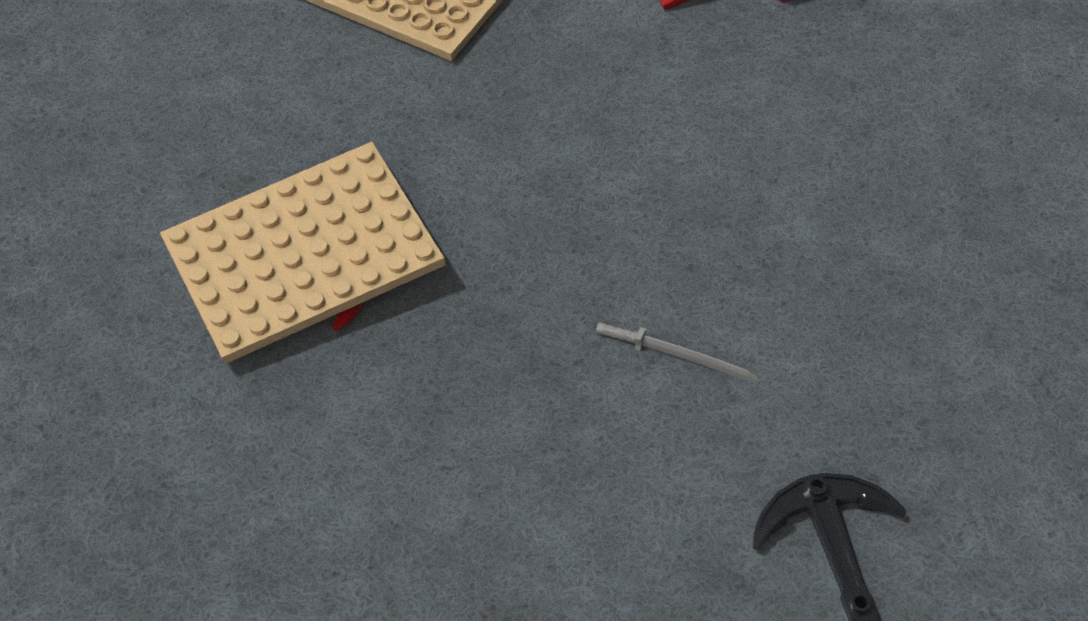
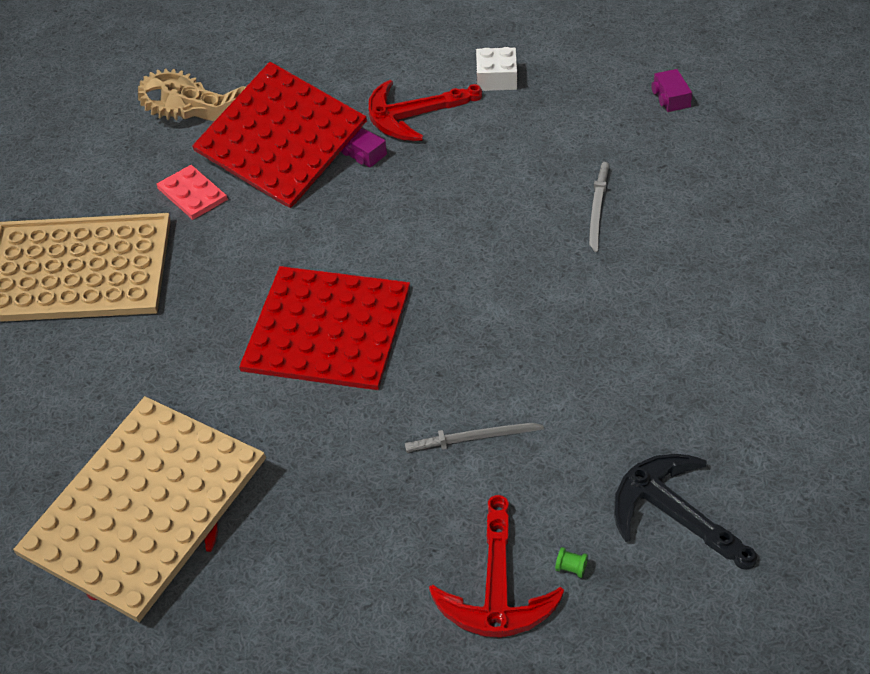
camera: 30 degrees left, 5 degrees down
(574, 530) = (512, 619): none -> red piece
(610, 159) = (326, 328): none -> red plate
(678, 537) = (571, 562): none -> bright green bush
(1024, 145) = (599, 188): none -> light grey sword

